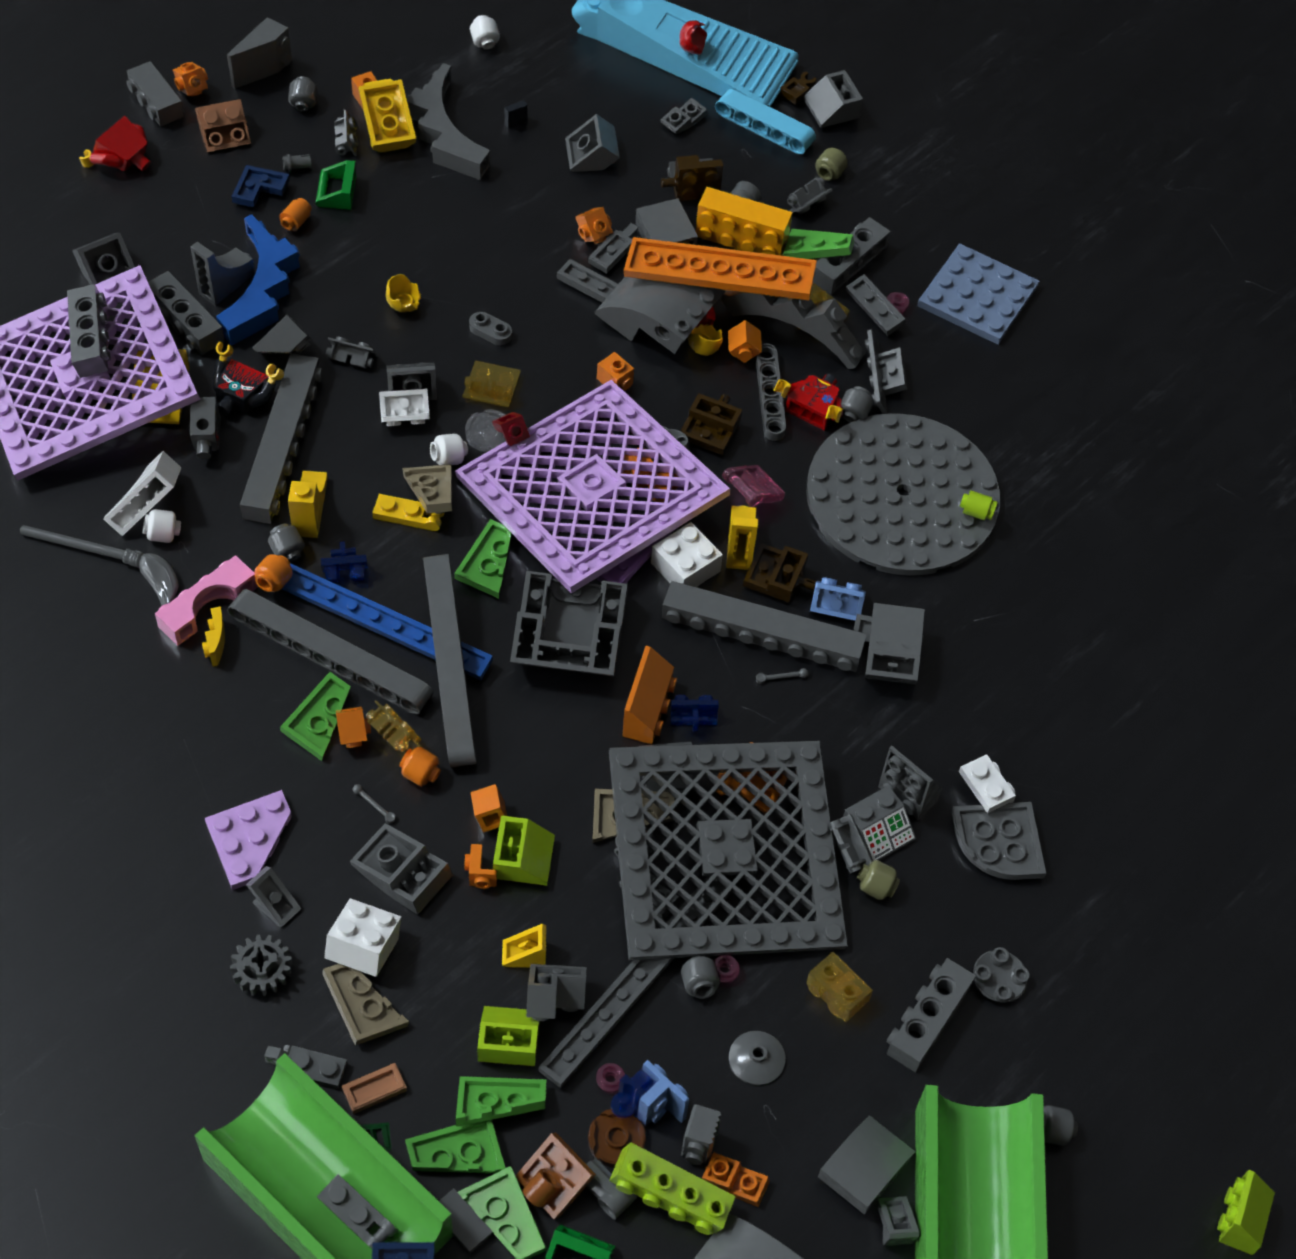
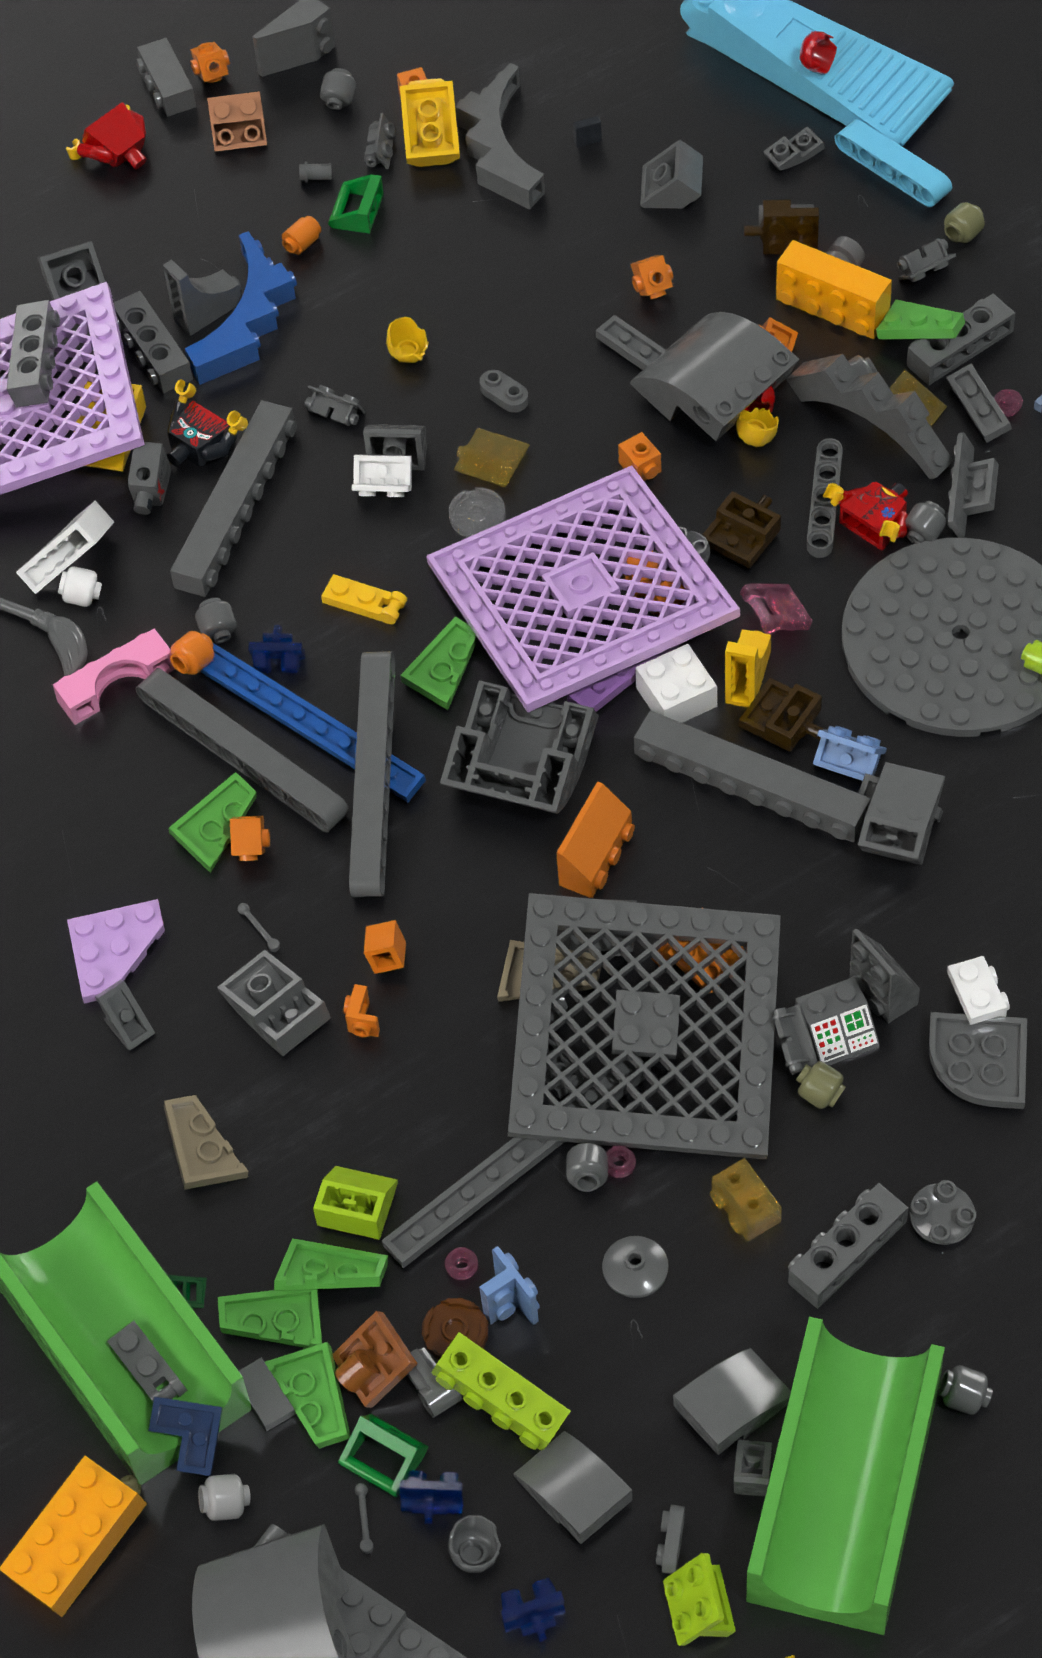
camera: 20 degrees right, 0 degrees up
(215, 637) = (117, 719): yellow slope -> none
(248, 961) = (109, 1093): dark grey gear -> none
(258, 180) = (265, 190): dark blue plate -> none
(284, 338) = (257, 381): dark grey slope -> none
(307, 502) = (246, 576): yellow arch -> none
(320, 1067) = (135, 1205): dark grey hinge -> none
(362, 937) = (213, 1071): white brick -> none
(374, 1088) = (196, 1238): nougat tile -> none
(392, 727) = (292, 843): clear yellow hinge -> none
(420, 766) = (316, 890): orange head -> none
(431, 486) = (395, 571): dark tan wing -> none
(448, 449) = (423, 530): white head -> none
(484, 32) = (570, 27): white head -> none
(512, 427) = (501, 512): dark red bracket -> none
(523, 851) = (412, 1000): lime slope -> none
(525, 948) = (396, 1109): yellow slope -> none
(554, 988) = (417, 1155): dark grey brick -> none
(613, 248) = (672, 306): dark grey hinge -> none
(629, 1093) = (467, 1292): clear blue hips -> none
(666, 223) = (740, 286): dark grey brick -> none
(694, 712) = (646, 866): clear blue hips -> none
(700, 1135) = (545, 1338): dark grey brick -> none
(720, 268) = (783, 342): orange plate -> none
(735, 1179) = (579, 1395): orange slope -> none
(744, 341) = (804, 433): orange brick -> none
(762, 678) = (737, 837): dark grey hinge -> none
(796, 89) = (943, 125): dark brown plate -> none
(834, 100) = (984, 142): dark grey slope -> none

